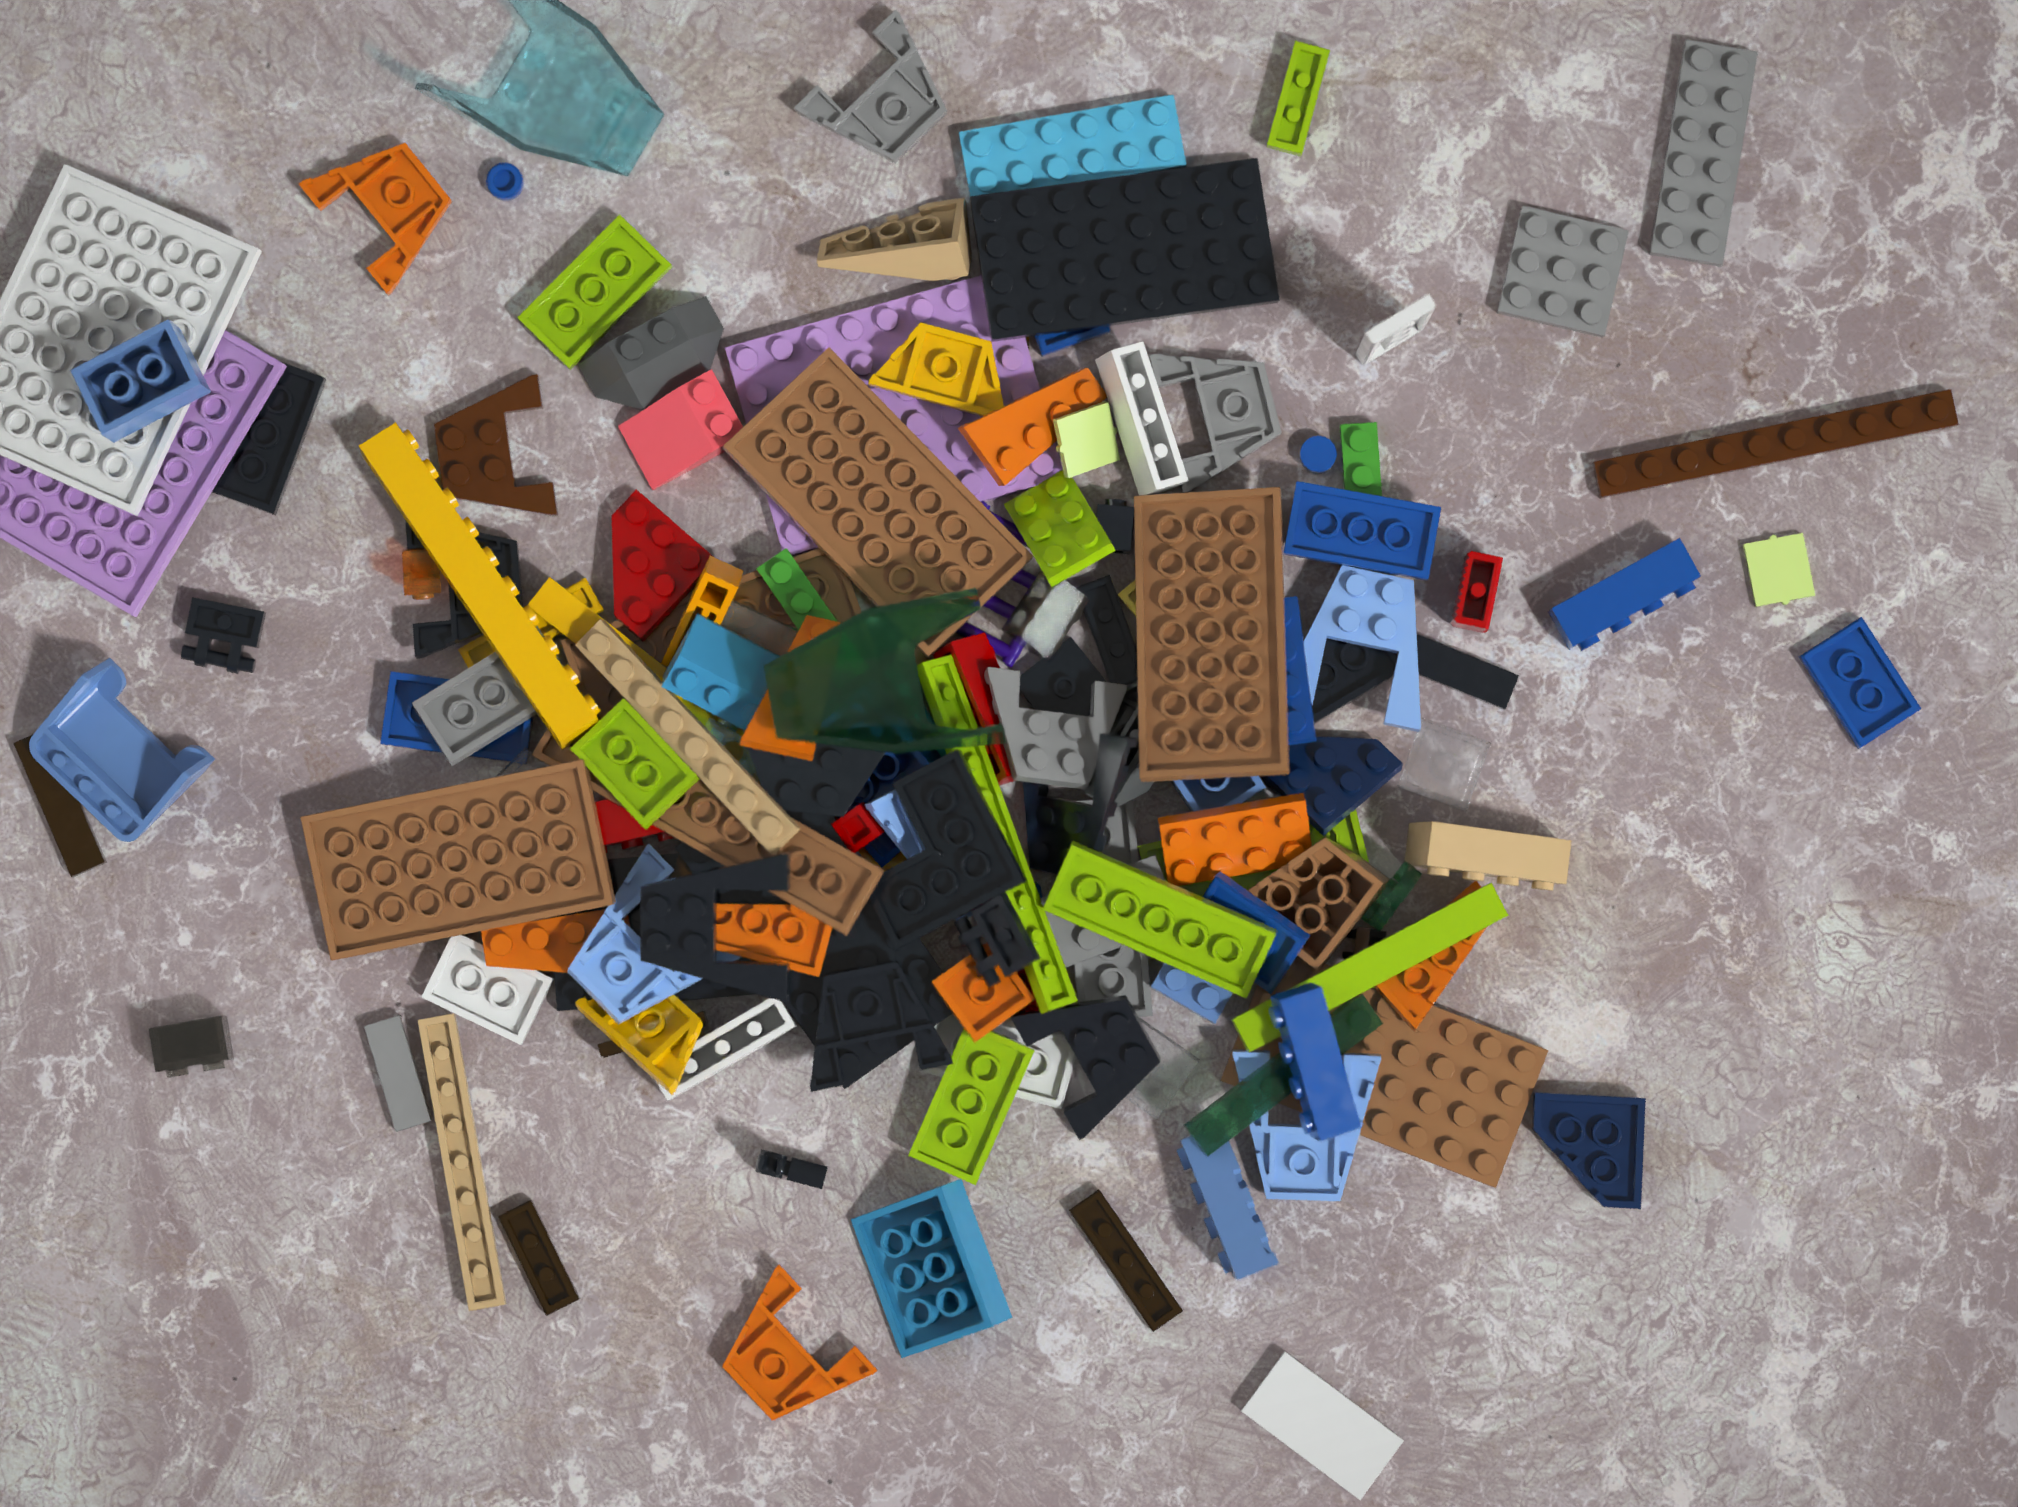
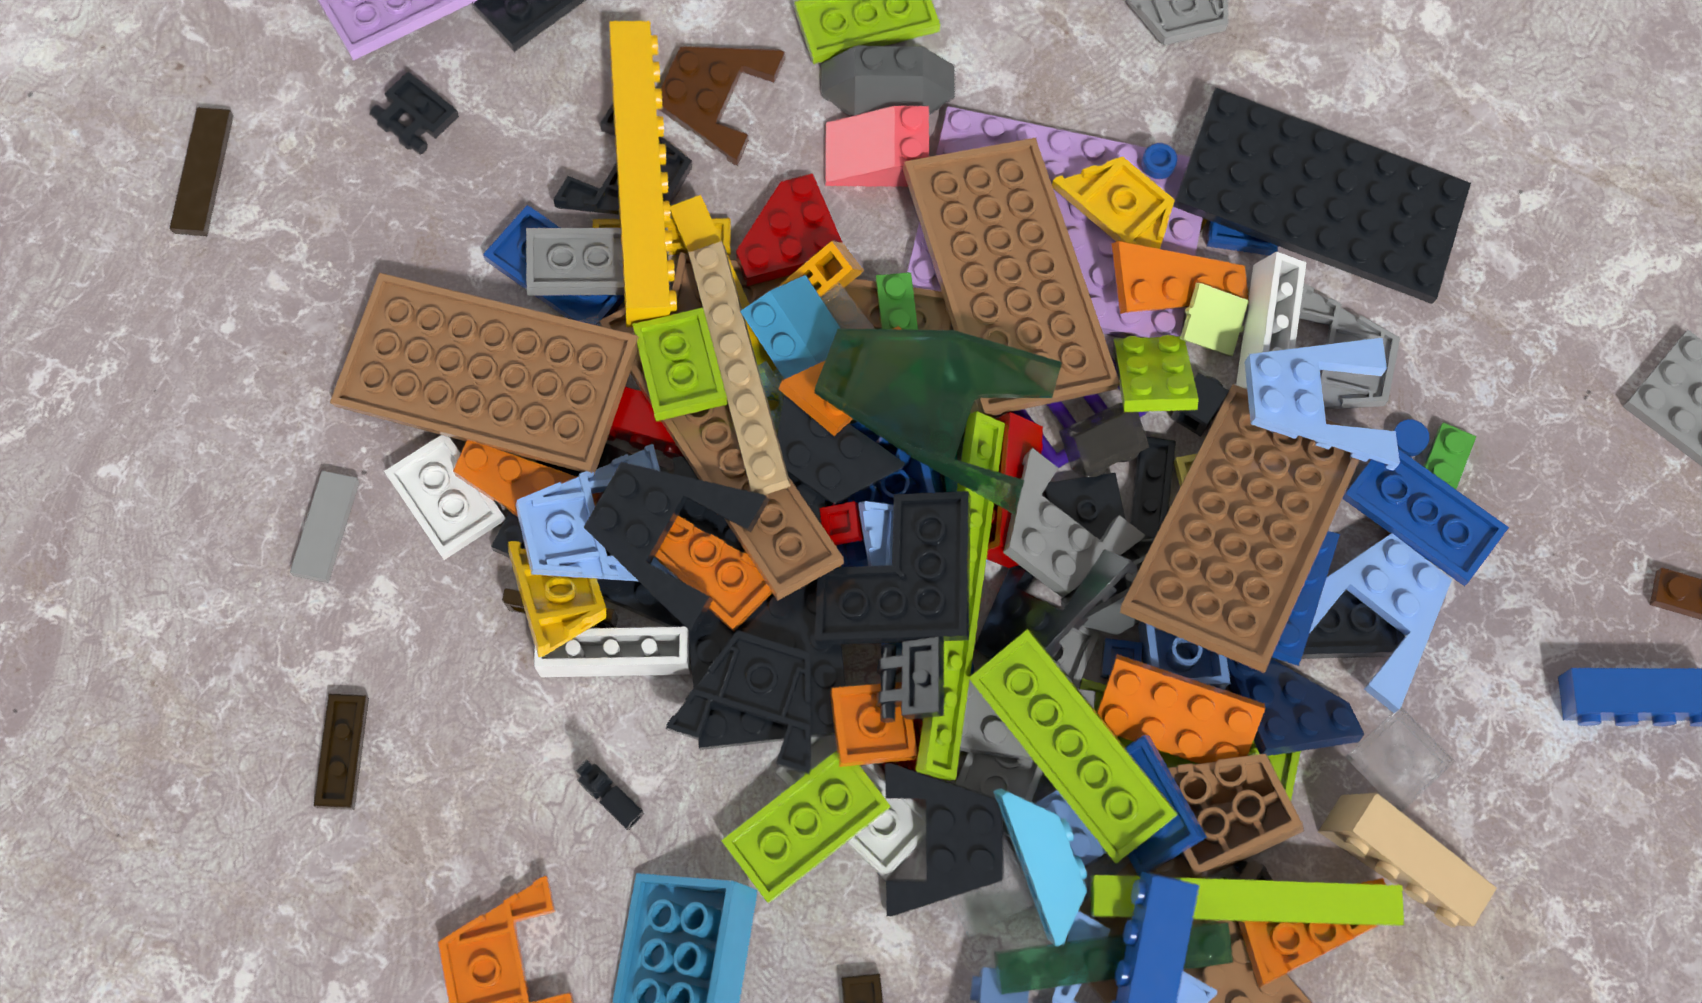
camera: 25 degrees right, 15 degrees down
(111, 757) = (263, 150): medium blue windscreen -> none
(191, 1045) = (170, 407): clear smoke brick -> none
(420, 574) = (597, 145): clear orange bracket -> none
(462, 1162) = (326, 633): tan plate -> none
(920, 246) = (1158, 114): tan wedge -> none
(955, 302) = (1159, 161): none -> blue tile
(1074, 147) = (1322, 100): medium azure plate -> none
(1161, 804) = (1112, 647): none -> blue plate
(1187, 1028) = (1046, 861): none -> medium azure wedge
(1188, 490) = (1288, 396): none -> light blue wing
(1298, 98) = (1527, 156): lime plate -> none
(1392, 896) = (1299, 847): clear green plate -> none
(1395, 330) = (1542, 352): white tile -> none
(1464, 673) = (1458, 690): black tile -> none
(1477, 591) = (1505, 619): red brick -> none

